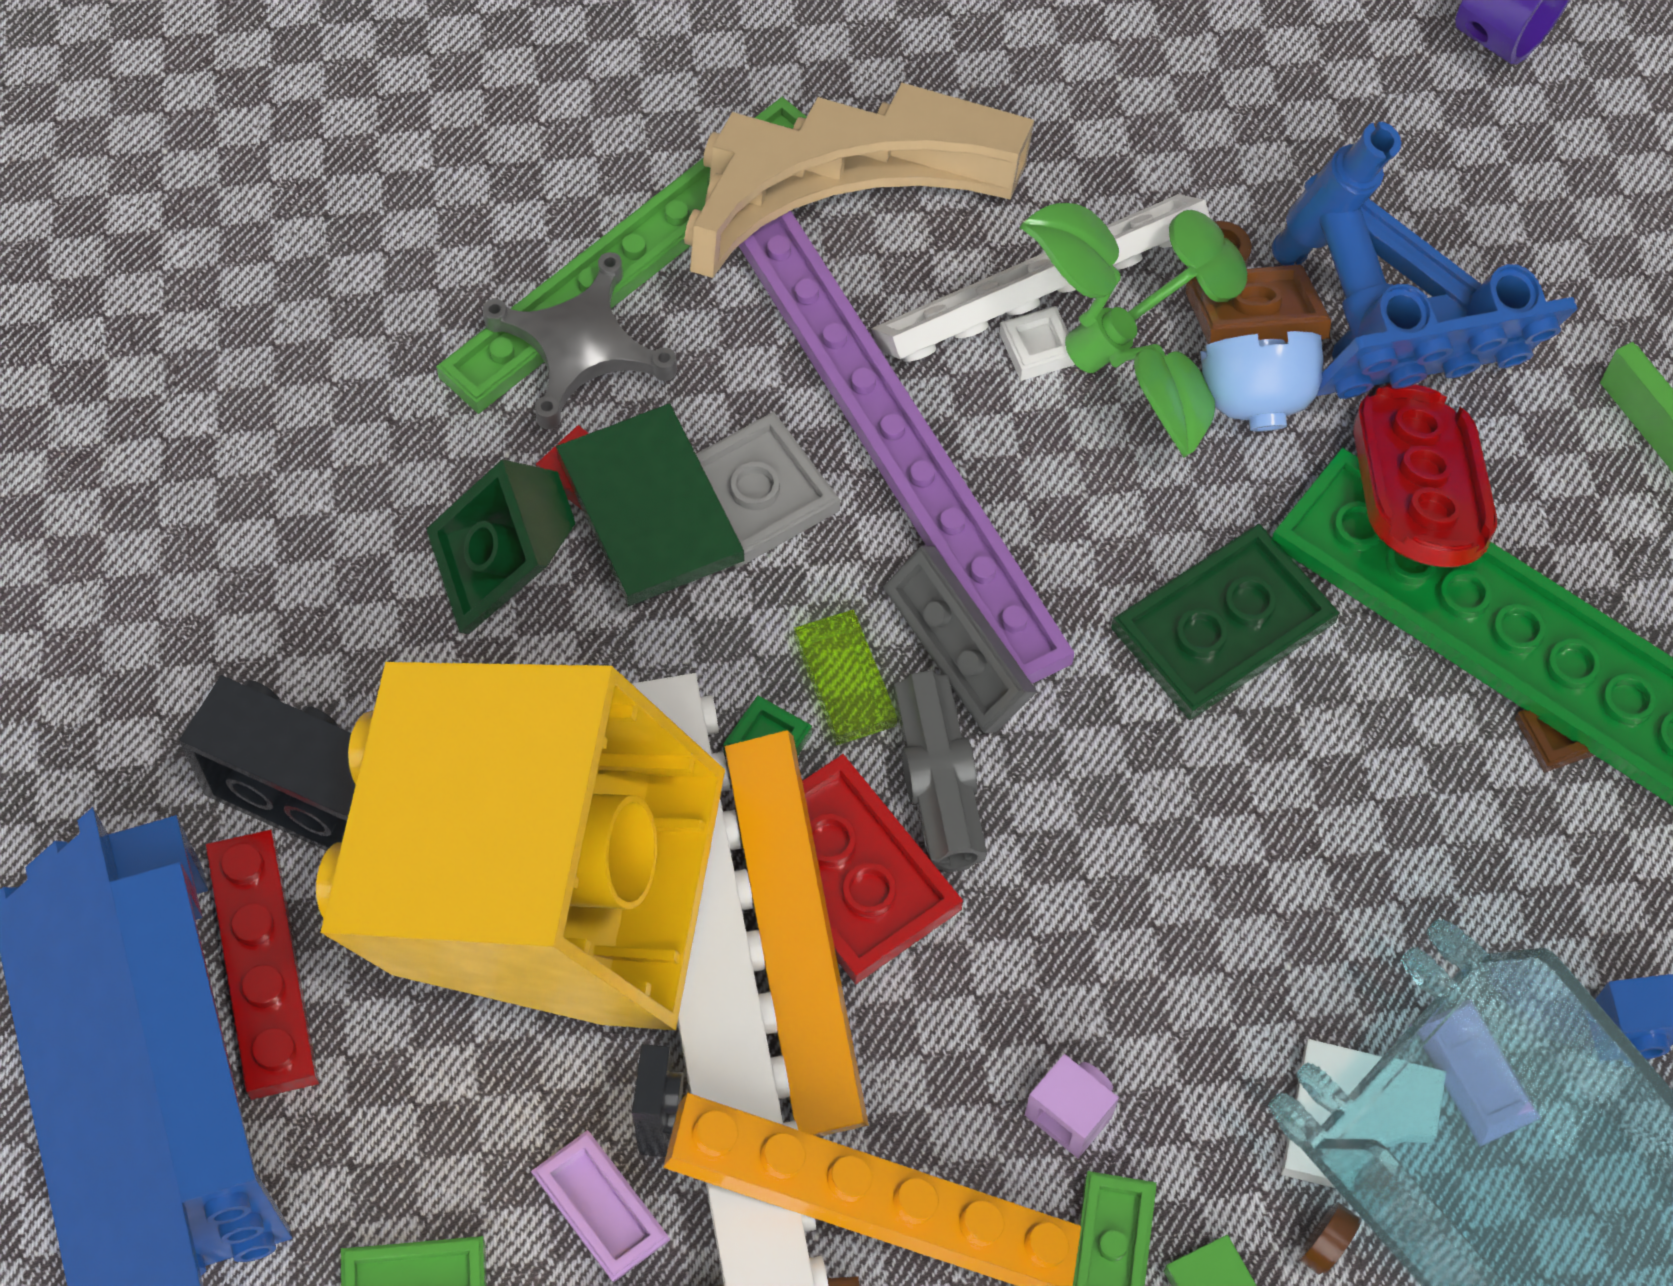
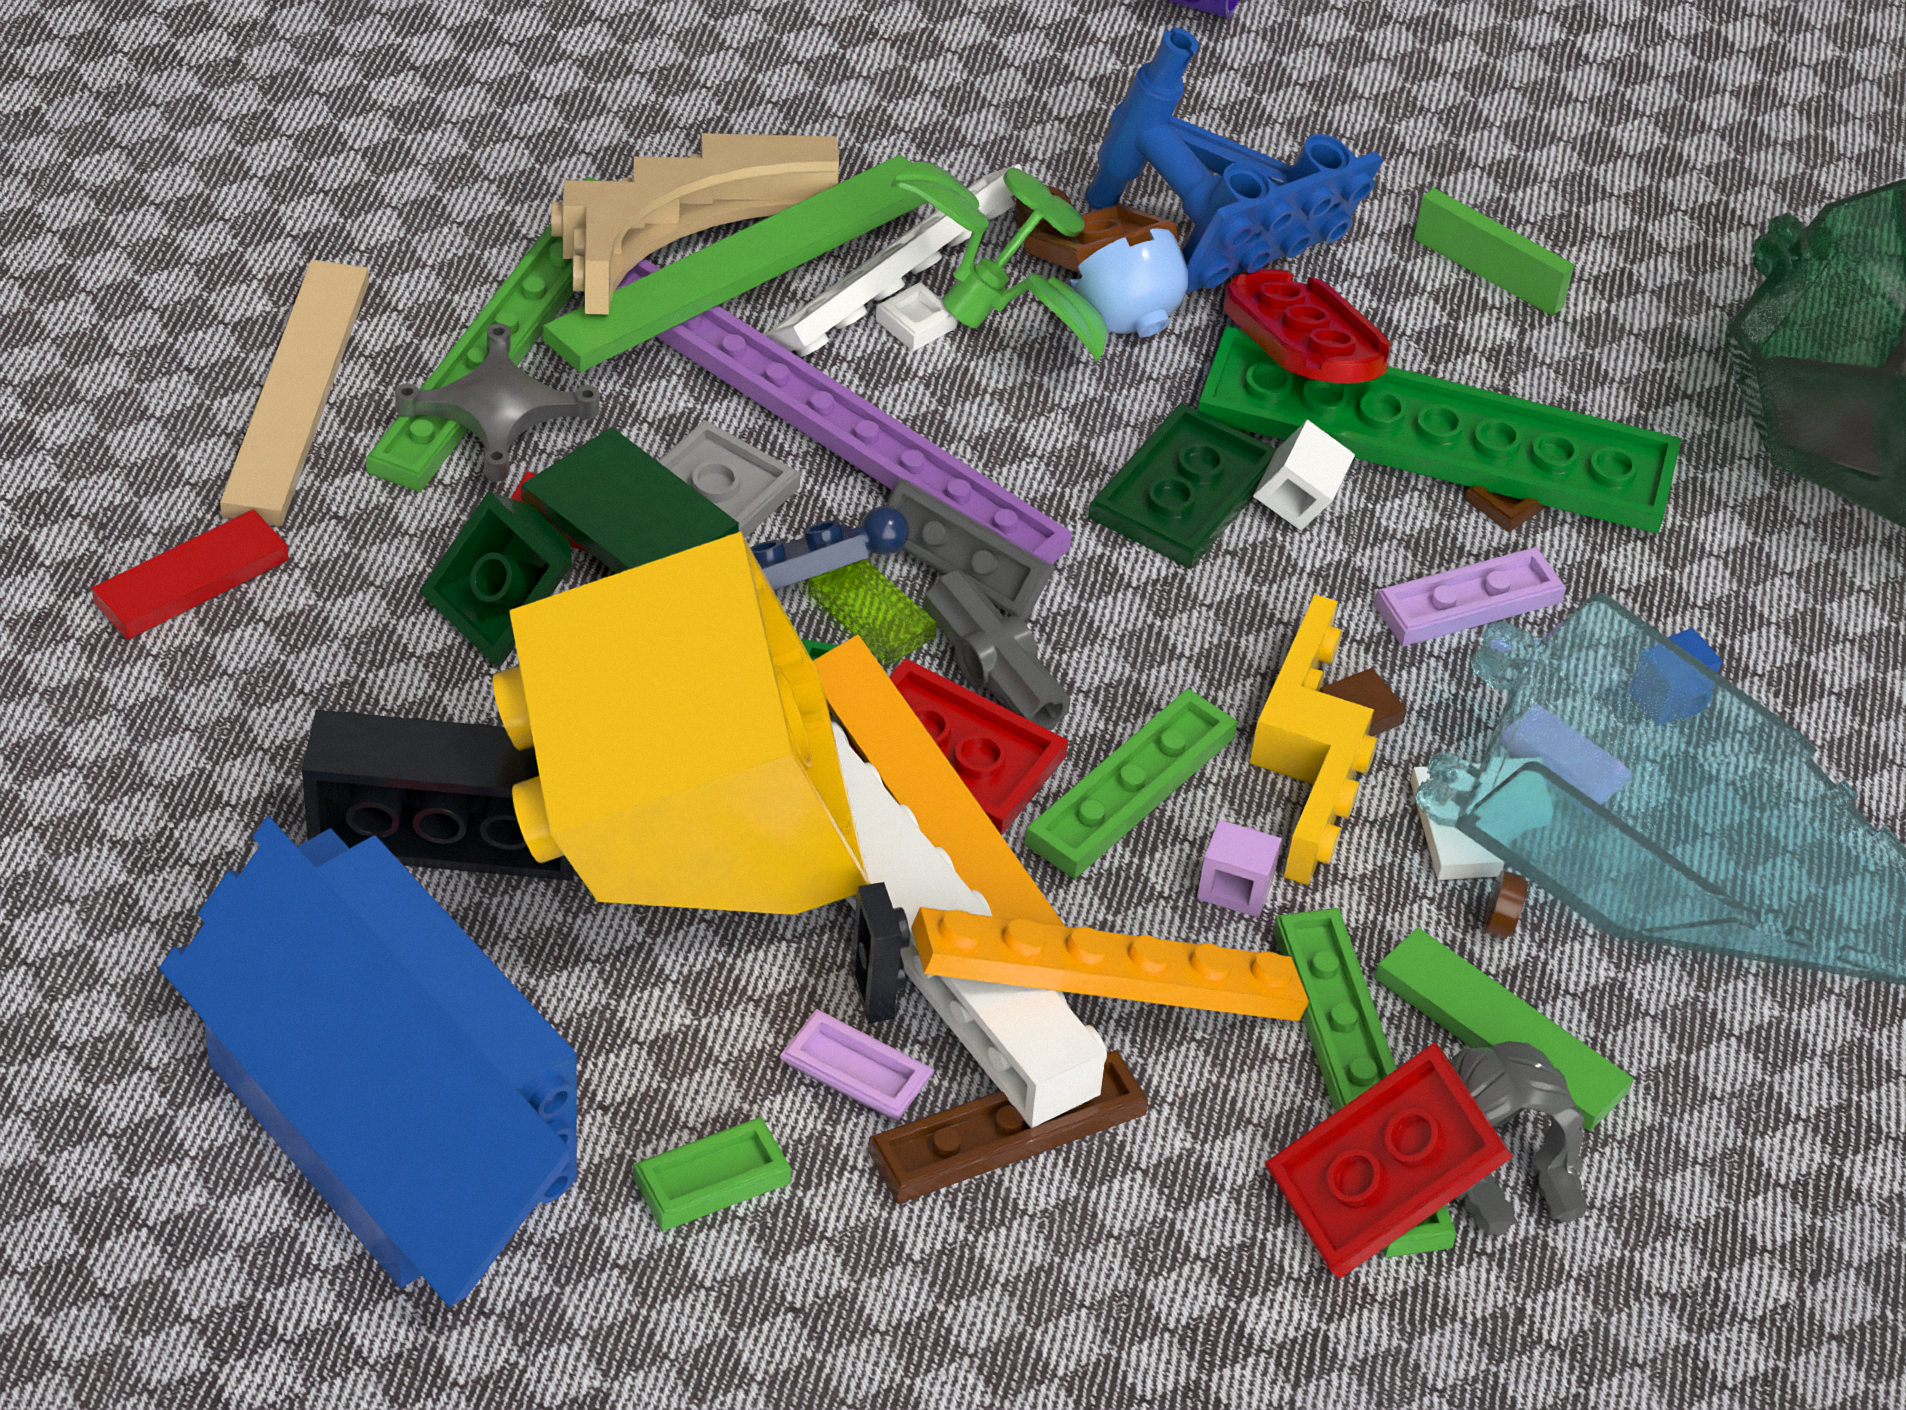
camera: 25 degrees left, 15 degrees down
(225, 450) = (190, 574): none -> red tile
(406, 272) = (295, 392): none -> tan tile
(787, 606) = (831, 546): none -> dark blue plate
(874, 243) = (732, 266): none -> bright green tile
(1009, 966) = (1130, 783): none -> bright green plate
(1217, 975) = (1314, 740): none -> yellow bracket
(1290, 943) = (1370, 691): none -> reddish brown tile
(1344, 653) = (1304, 475): none -> white brick
(1465, 843) = (1469, 596): none -> lavender tile

